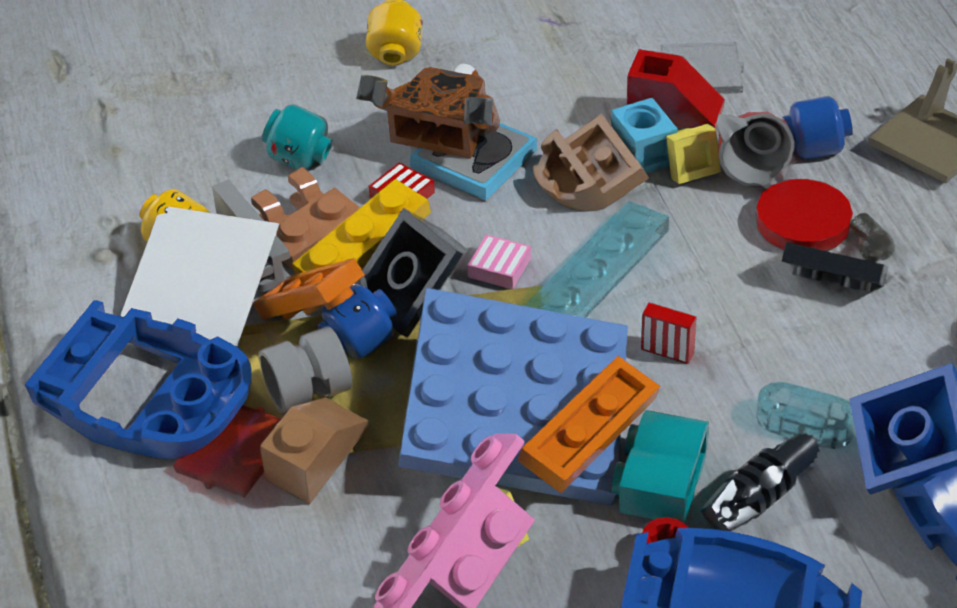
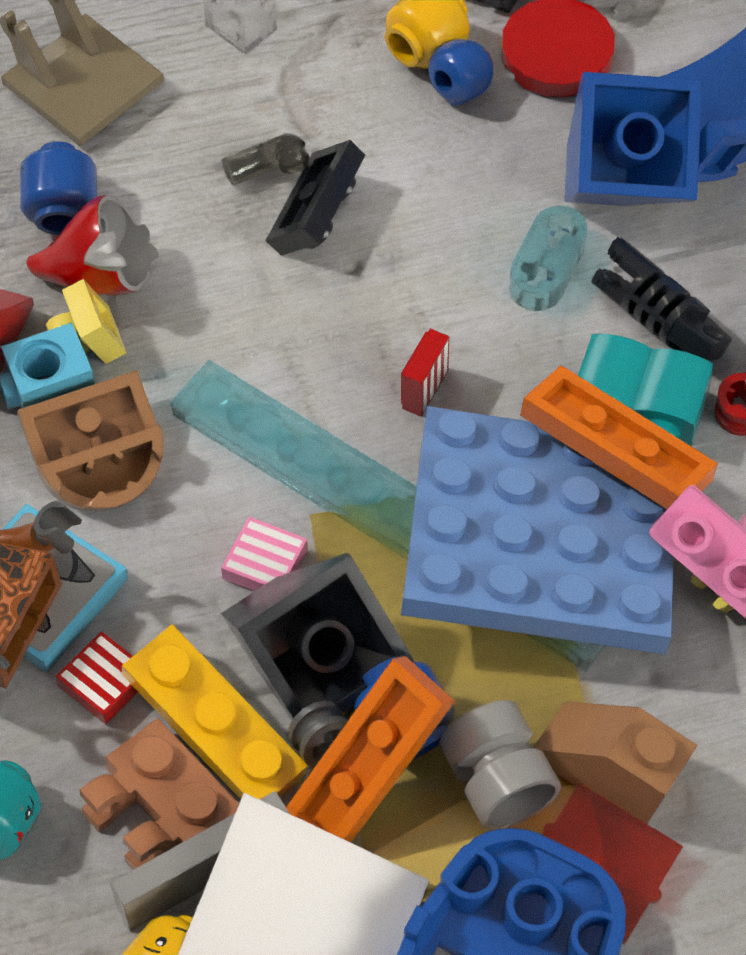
camera: 90 degrees left, 15 degrees up
(804, 214) = (209, 225): red tile -> none

